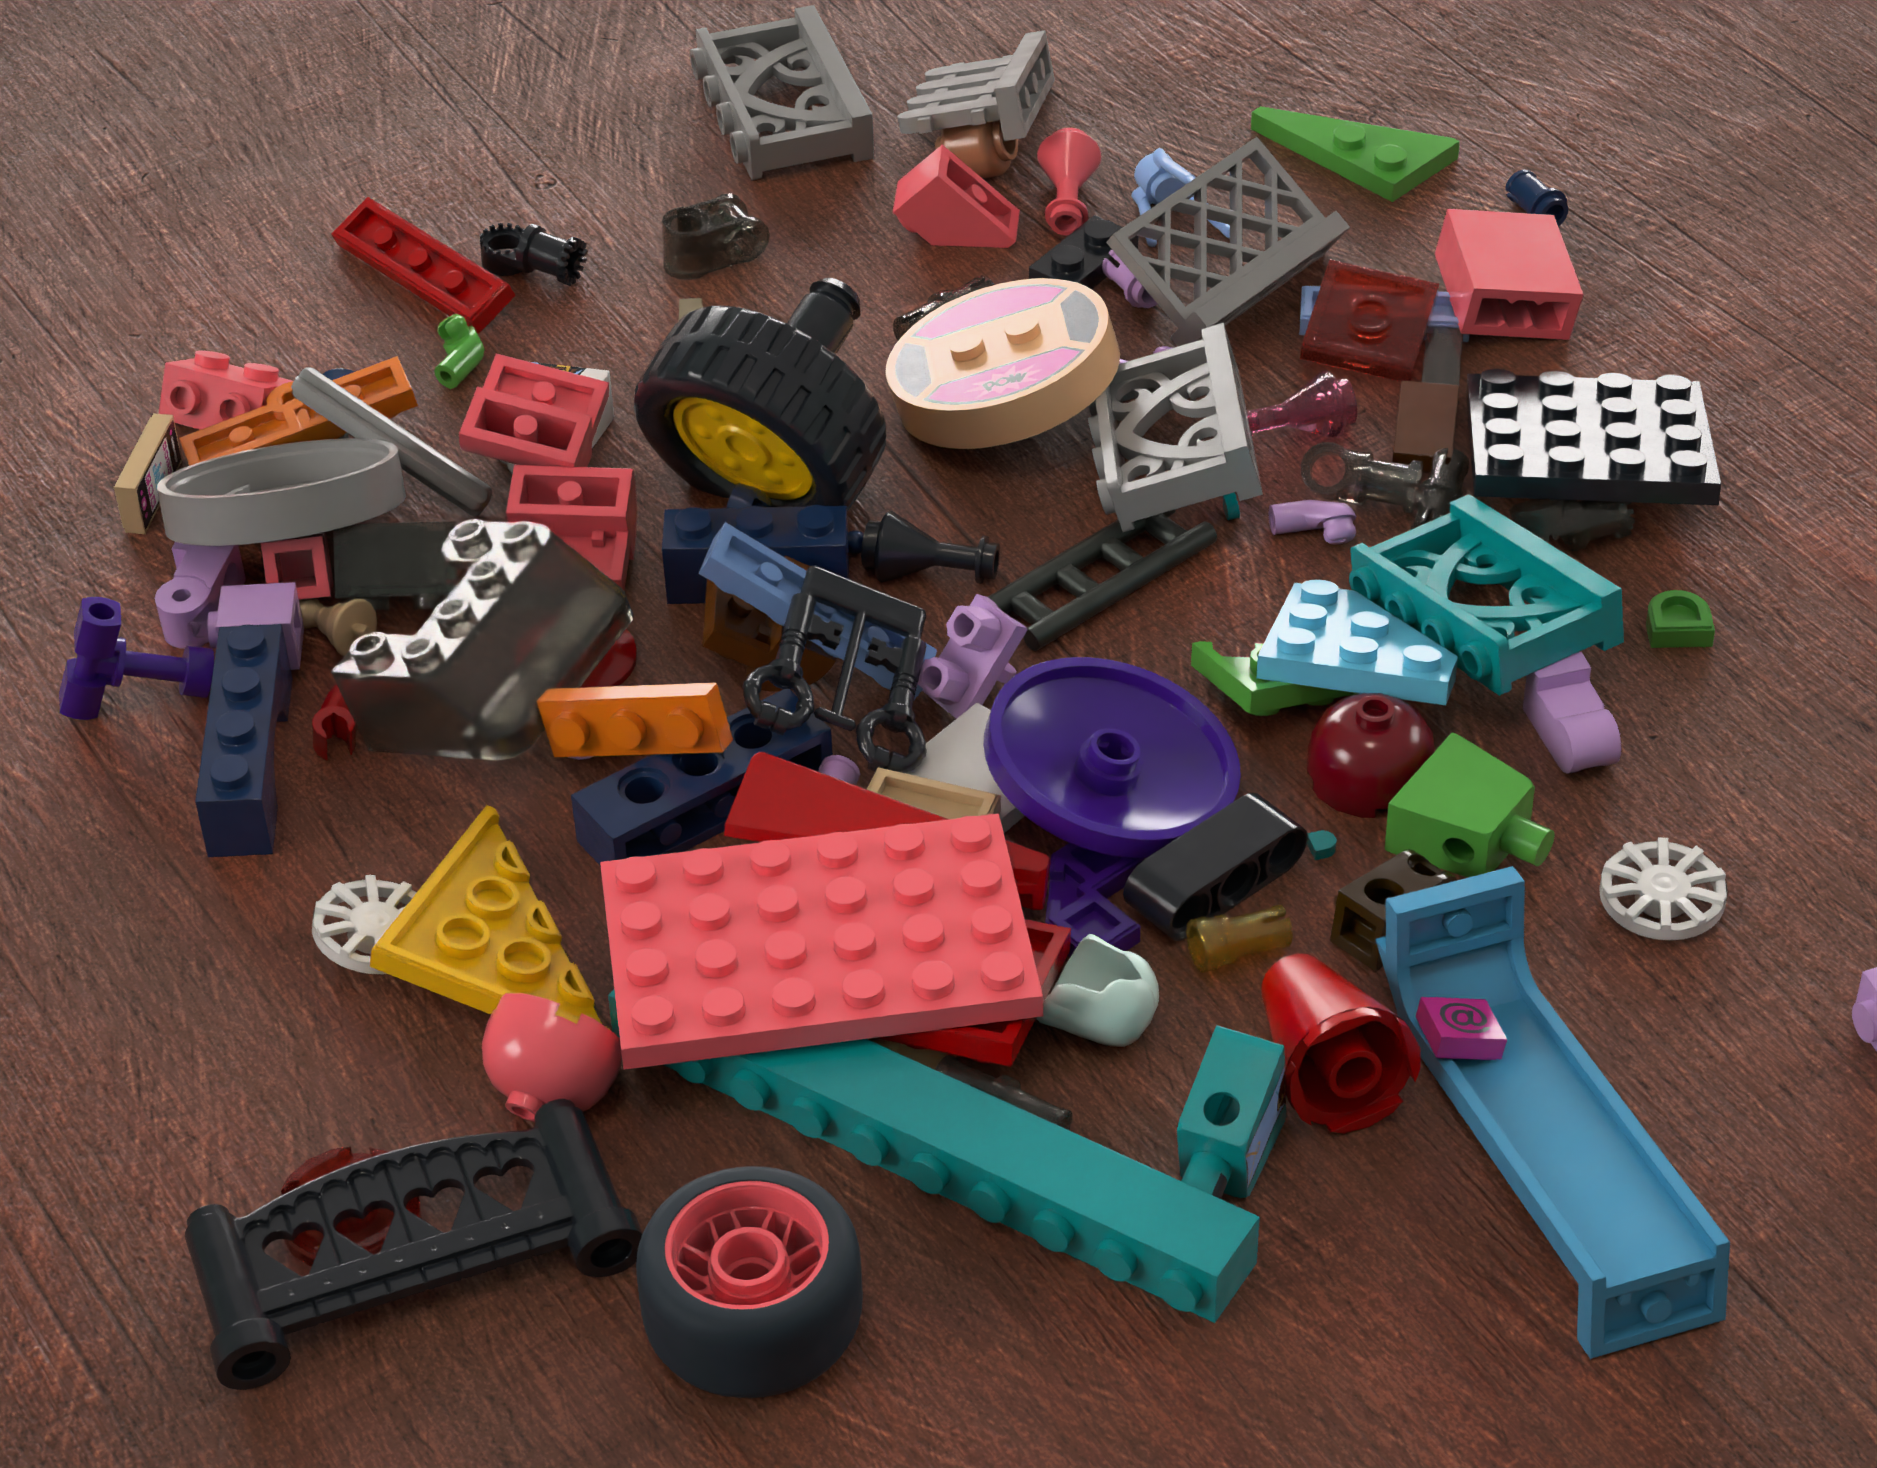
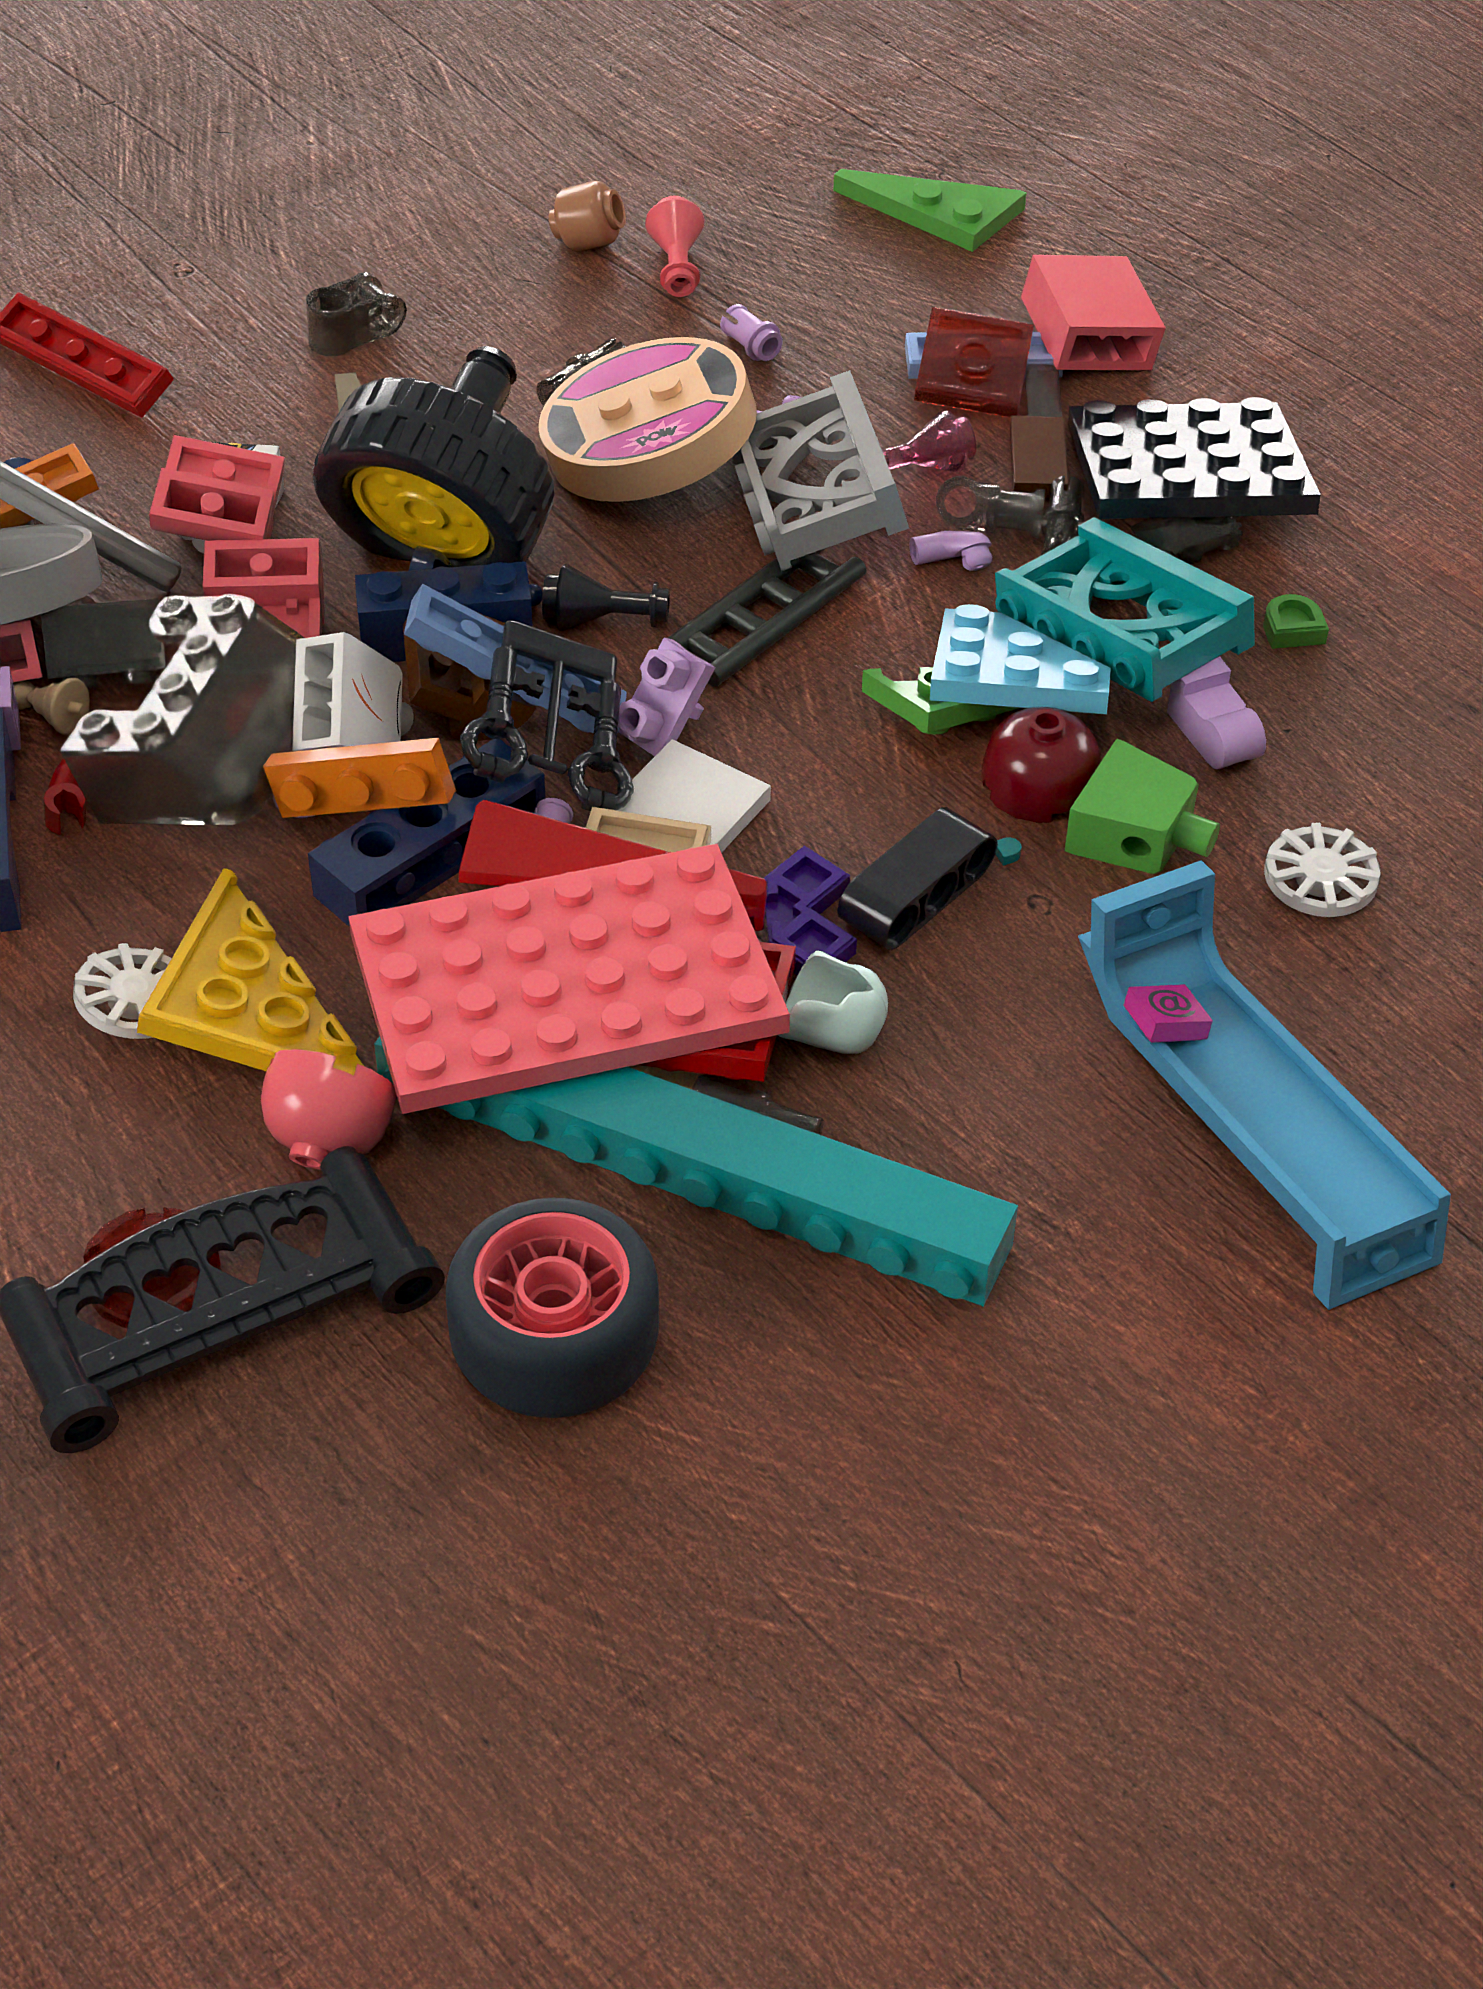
camera: 10 degrees left, 5 degrees up
(462, 348) = (131, 433): bright green arm -> none
(532, 251) = (183, 337): black connector -> none
(635, 633) = (346, 695): none -> white torso
(780, 47) = (451, 207): light grey fence -> none
(954, 205) = (575, 273): coral slope -> none
(985, 92) = (587, 166): light grey fence -> none
(1080, 254) = (702, 311): black plate -> none
(1108, 755) = (806, 781): dark purple dish -> none
(1159, 178) = (765, 244): light blue plant -> none
(1224, 939) = (937, 945): clear yellow pin -> none
(1231, 506) = (874, 542): teal piece -> none
(1232, 1114) = (976, 1109): teal torso -> none
(1247, 283) = (856, 333): light grey fence -> none
(1340, 1045) = (1057, 1036): red cone -> none
(1362, 903) = (1065, 904): dark brown leg -> none
(1535, 196) = (1102, 240): dark blue pin -> none

